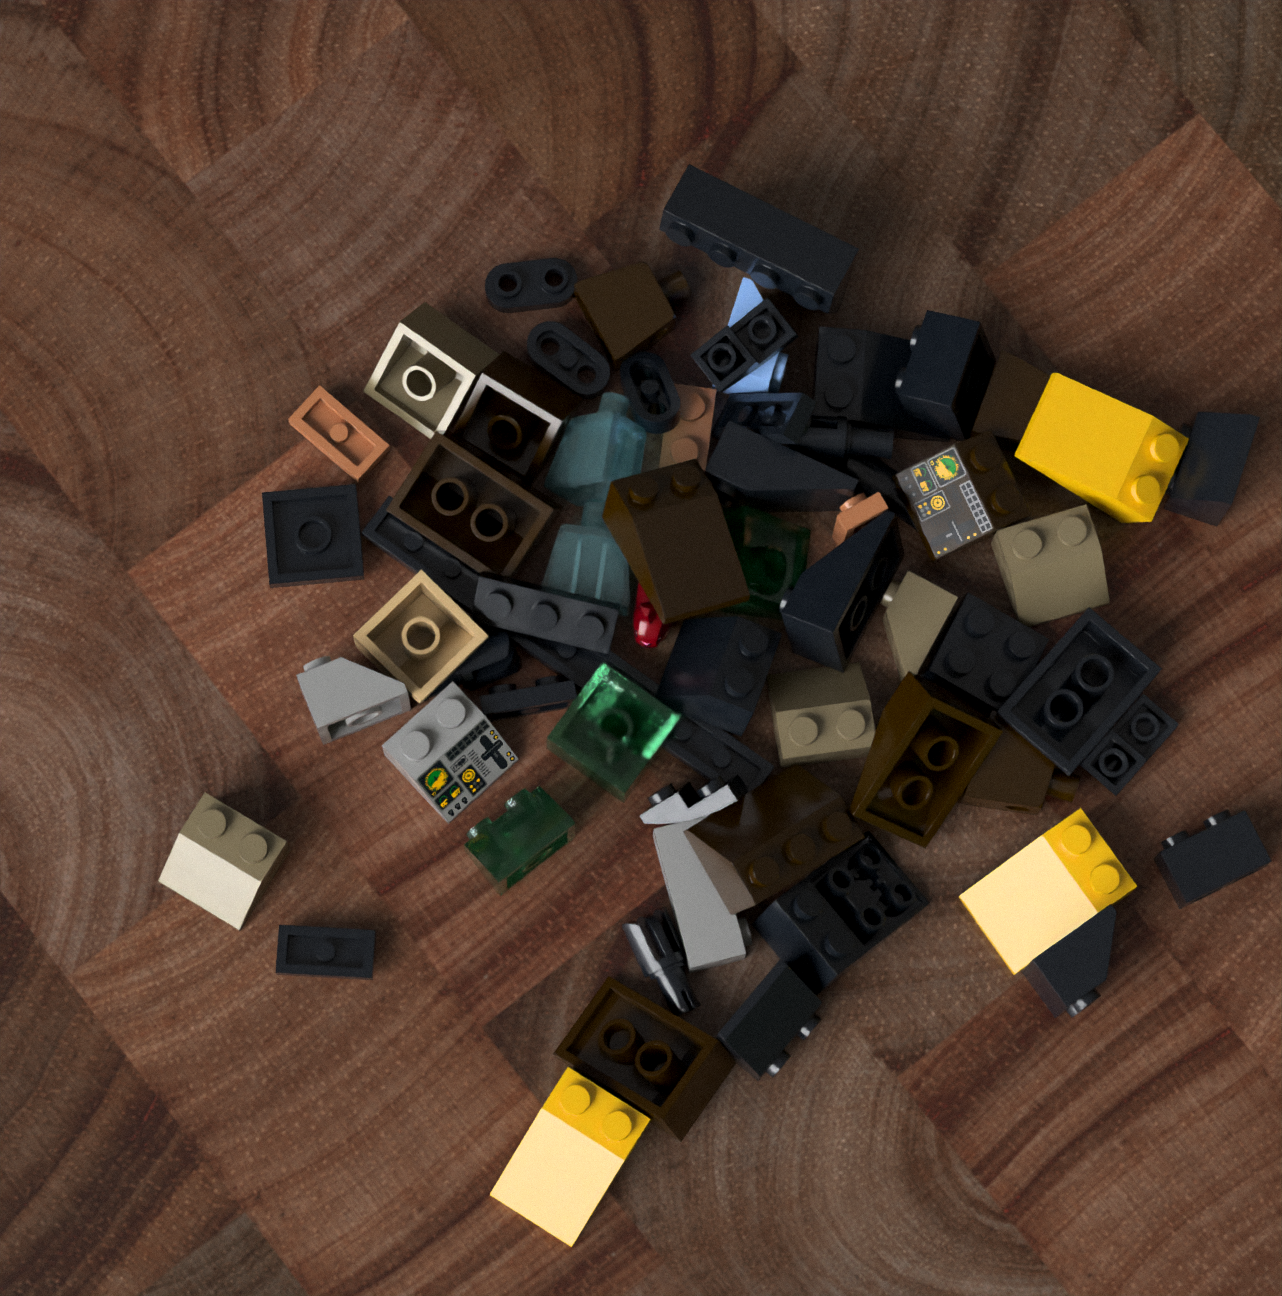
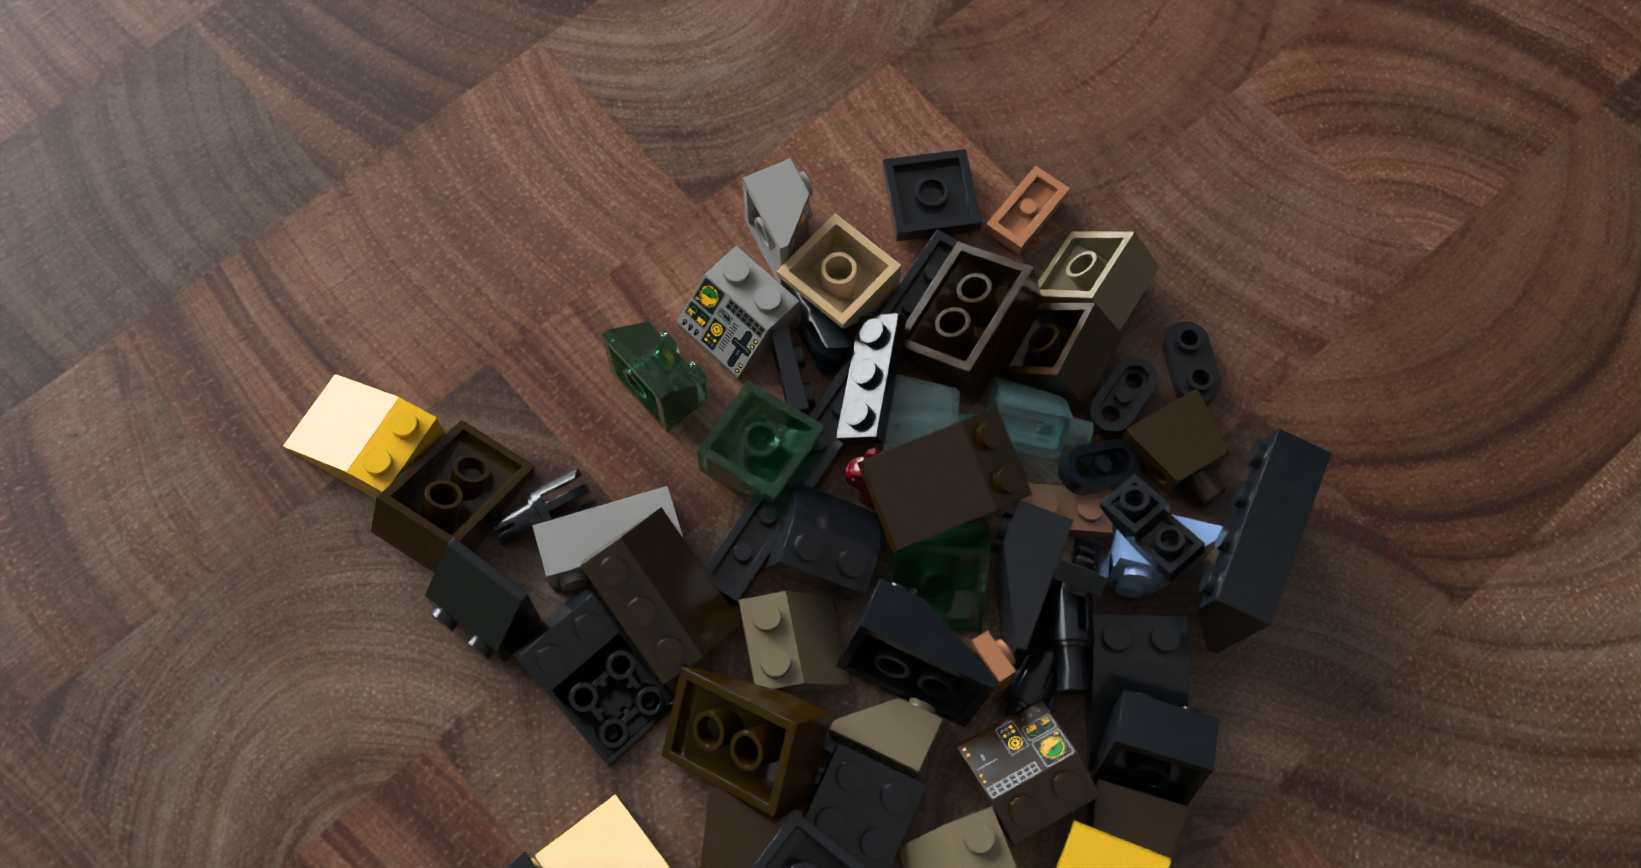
camera: 90 degrees right, 10 degrees down
(223, 861) = (638, 143): dark tan slope -> none
(325, 952) = (554, 227): black plate -> none
(684, 804) = (697, 522): slope -> none

